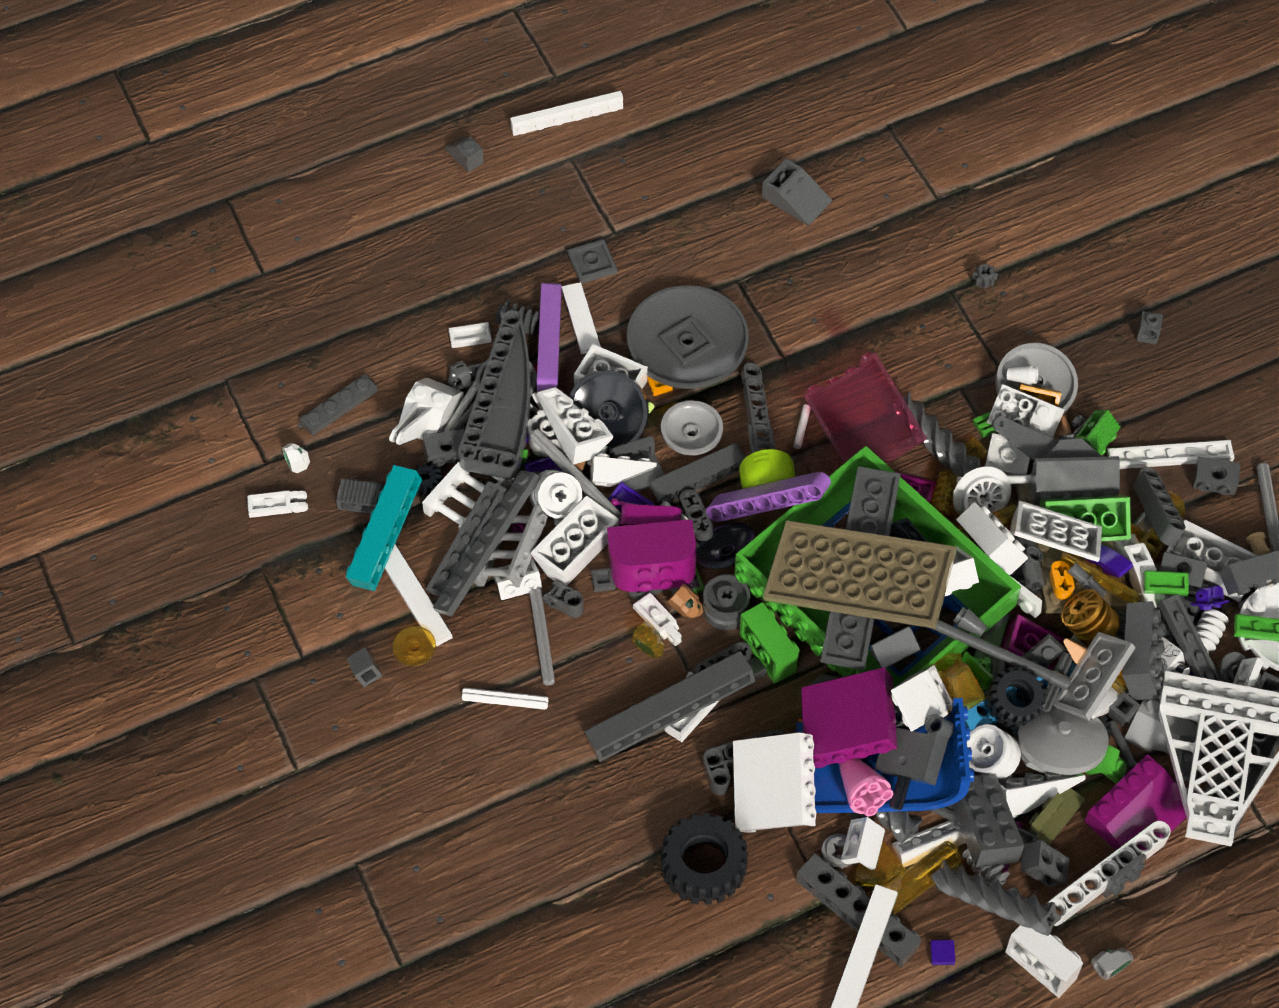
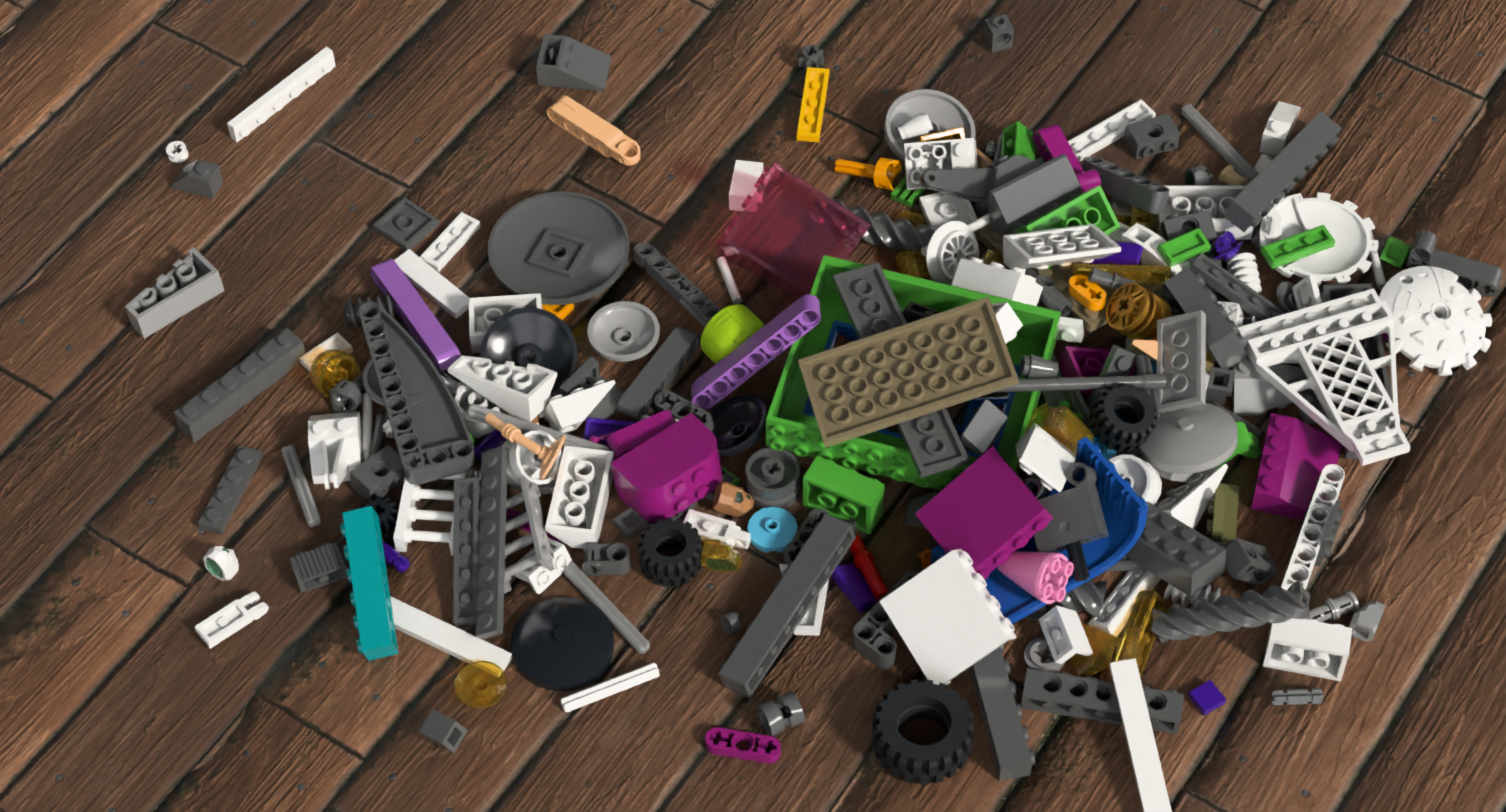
camera: 30 degrees left, 5 degrees down
(388, 426) = (301, 486): none -> light grey axle
(390, 234) = (175, 294): none -> light grey wedge
(392, 328) = (239, 385): none -> dark grey brick
(417, 516) = (392, 557): none -> dark purple axle
(463, 348) = (331, 367): none -> clear yellow cylinder
(465, 127) = (177, 157): none -> white bush
(493, 647) = (562, 644): none -> black dish
(561, 497) = (546, 454): none -> light nougat dish
(568, 785) = (736, 736): none -> magenta beam
(603, 784) = (772, 717): none -> dark grey wheel
(607, 604) = (670, 568): none -> black tyre
(615, 291) = (450, 241): none -> white tile
(623, 696) = (730, 622): none -> dark grey hinge
(699, 649) = (772, 539): none -> medium azure plate
(734, 718) = (854, 586): none -> dark purple slope
(753, 703) = (864, 561): none -> red pin
(774, 879) = (1002, 716): none -> dark grey brick
(778, 255) = (594, 131): none -> light nougat piece
(866, 344) = (743, 181): none -> brick
(961, 315) = (813, 104): none -> yellow plate
(975, 399) = (883, 172): none -> light orange piece
(1013, 991) = (1297, 696): none -> dark grey axle
(1088, 937) = (1335, 607): none -> light grey pin
(1126, 447) = (1053, 143): none -> magenta beam
(1229, 530) = (1198, 176): none -> dark grey rock

